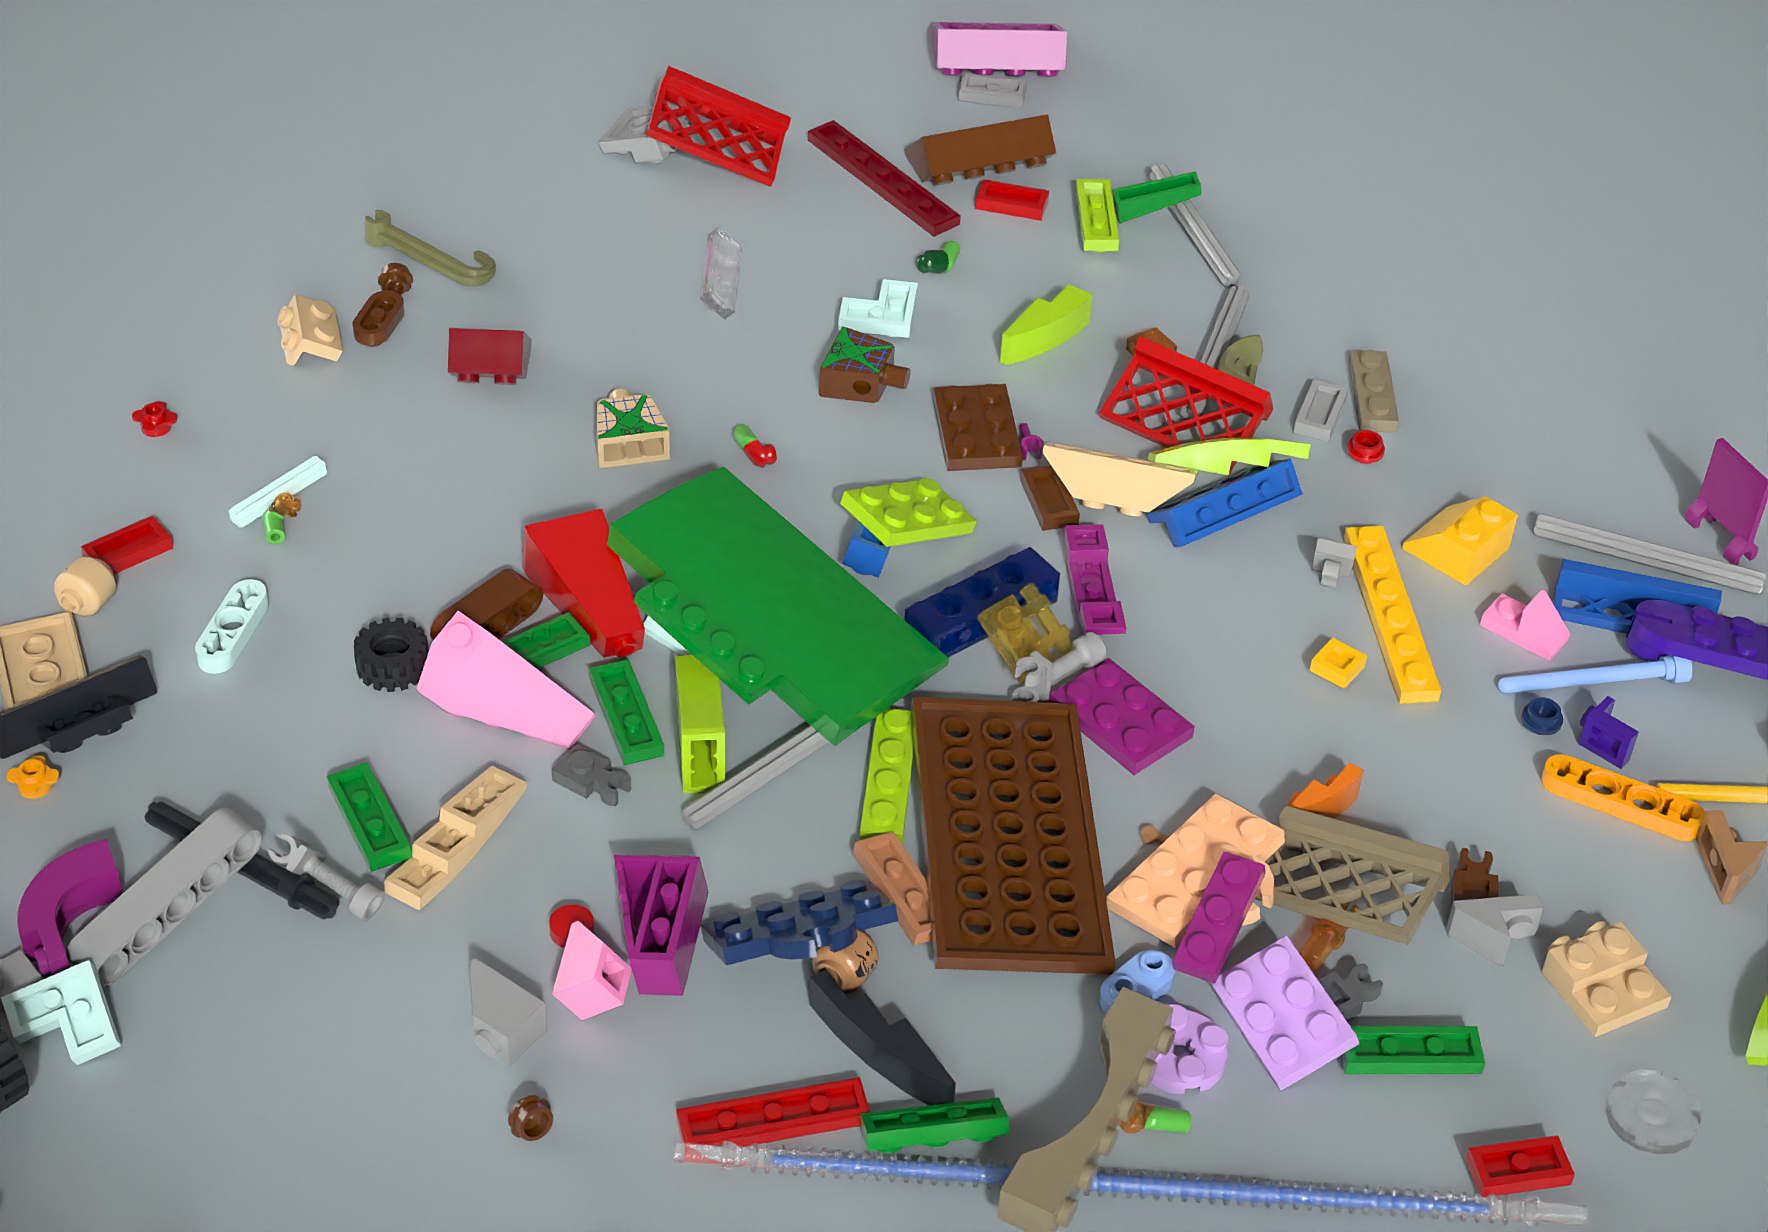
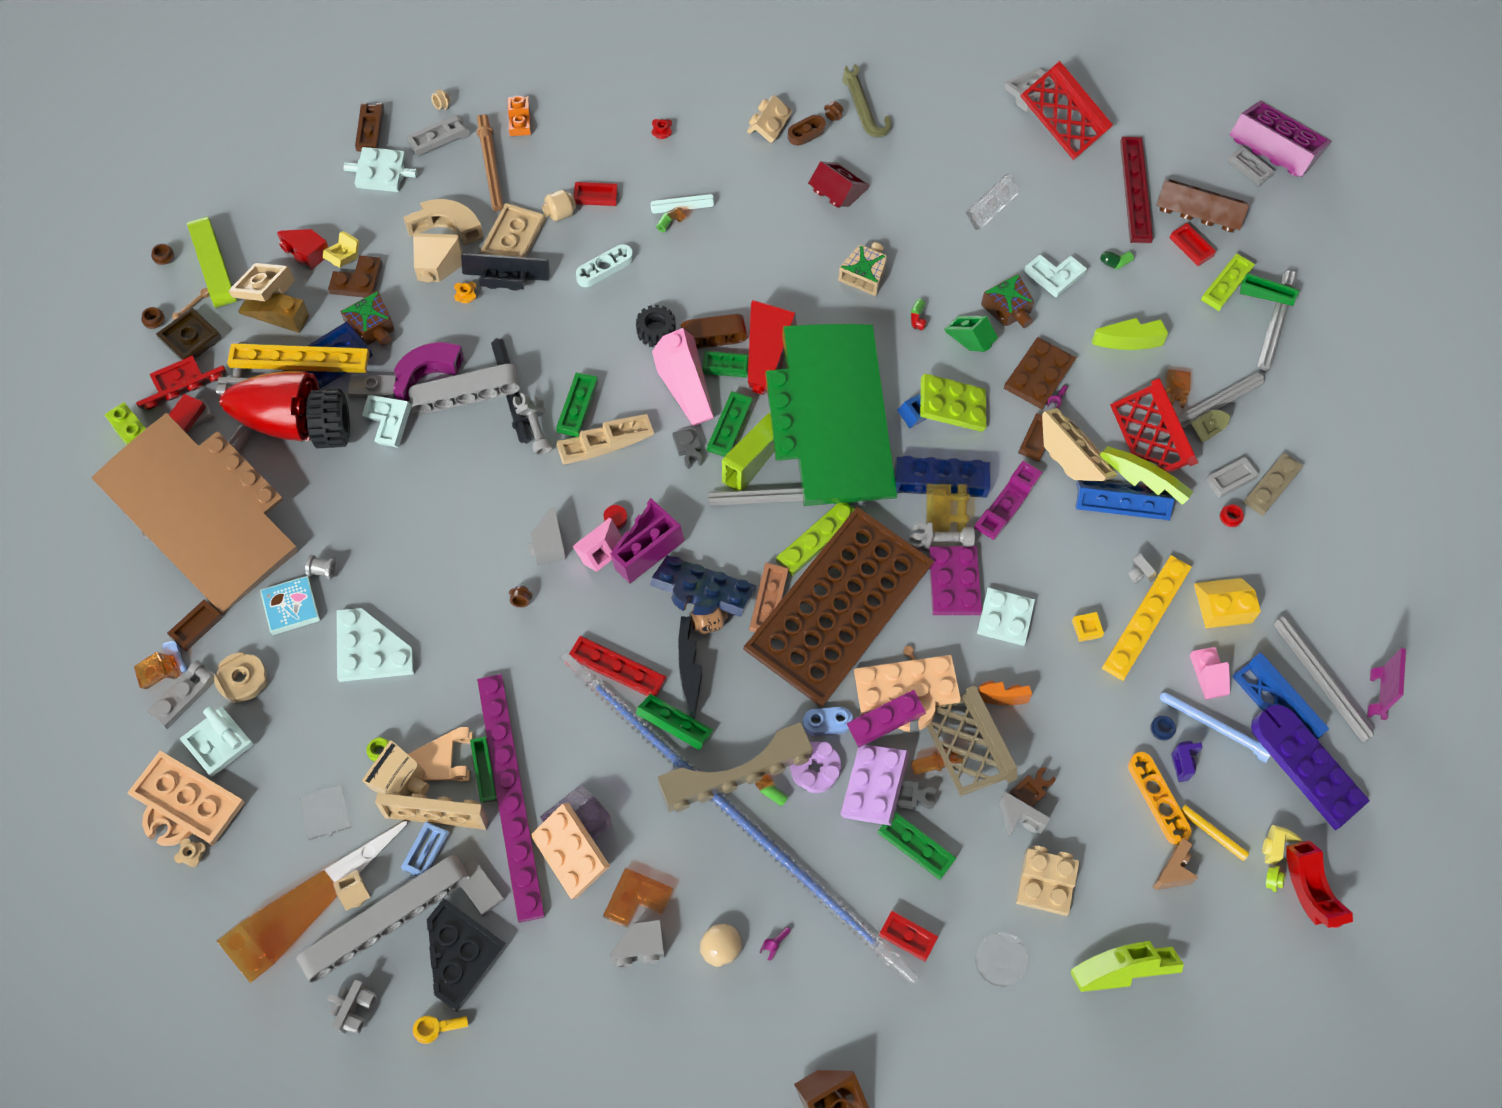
camera: 40 degrees right, 20 degrees up
(847, 424) = (972, 332): none -> green slope
(1228, 716) = (1005, 616): none -> light aqua plate

